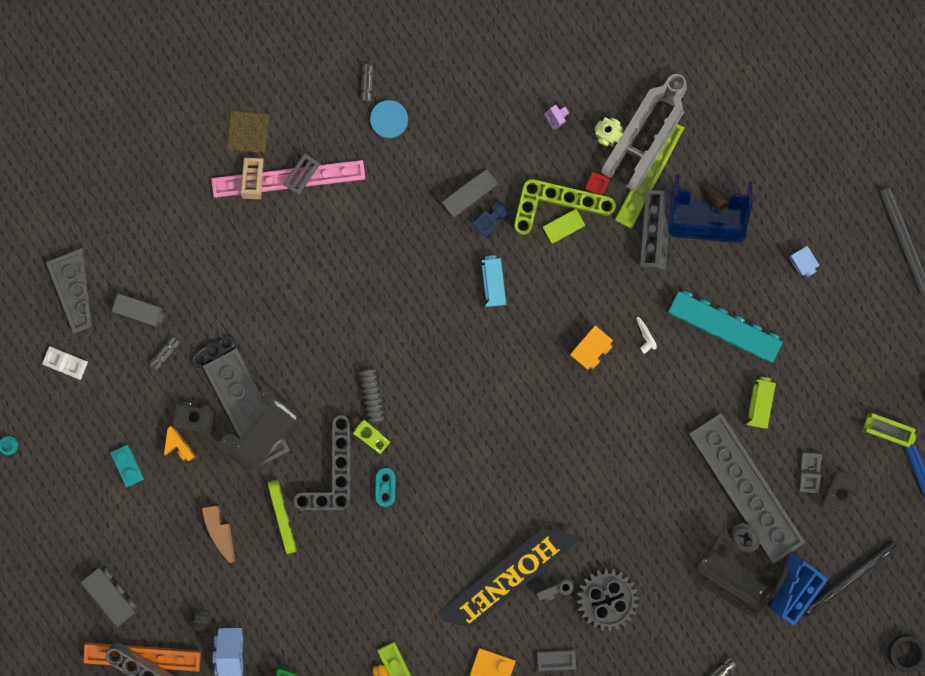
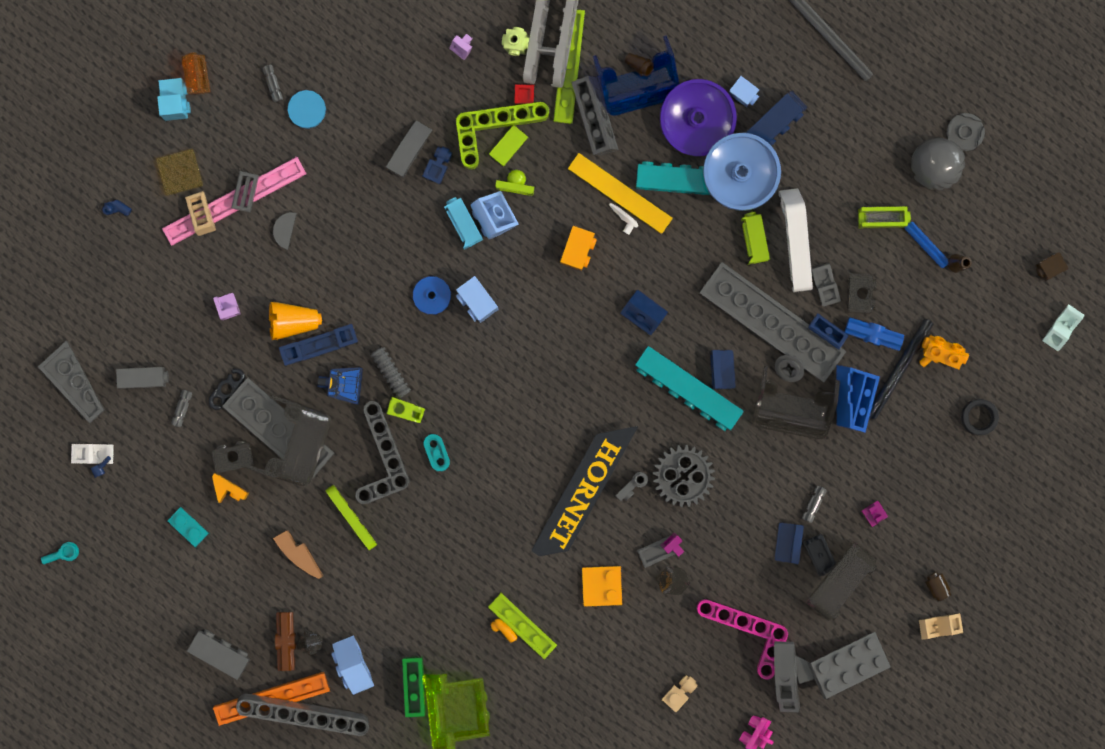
camera: 25 degrees left, 0 degrees up
(65, 380) = (98, 469): none -> dark blue hand
(175, 608) = (285, 641): none -> reddish brown piece
(176, 141) = (116, 206): none -> dark blue arm
(243, 274) = (227, 306): none -> lavender panel
(267, 63) = (173, 99): none -> medium azure brick
(298, 46) = (195, 74): none -> clear orange bracket
(298, 311) = (291, 320): none -> light orange cone
(314, 343) = (318, 345): none -> dark blue slope
(323, 389) = (343, 384): none -> torso
(324, 222) = (283, 229): none -> dark grey tile
(441, 348) = (434, 305): none -> blue plate
(478, 359) = (477, 300): none -> light blue brick
(525, 286) = (493, 215): none -> light blue brick
(556, 264) = (515, 184): none -> lime tile
(572, 659) = (672, 543): none -> magenta tile
(630, 432) = (644, 312): none -> dark blue panel
(644, 519) = (689, 388): none -> teal brick
(651, 311) = (620, 193): none -> yellow tile
(682, 514) = (722, 369): none -> dark blue panel
(751, 269) = (697, 116): none -> dark purple dish
(773, 336) = (742, 171): none -> medium blue dish
(795, 517) = (828, 331): none -> dark blue slope
(801, 419) = (797, 239): none -> white beam
(824, 301) = (779, 118): none -> dark blue wedge
(838, 536) = (874, 333): none -> blue piece
(894, 576) = (939, 350): none -> light orange brick

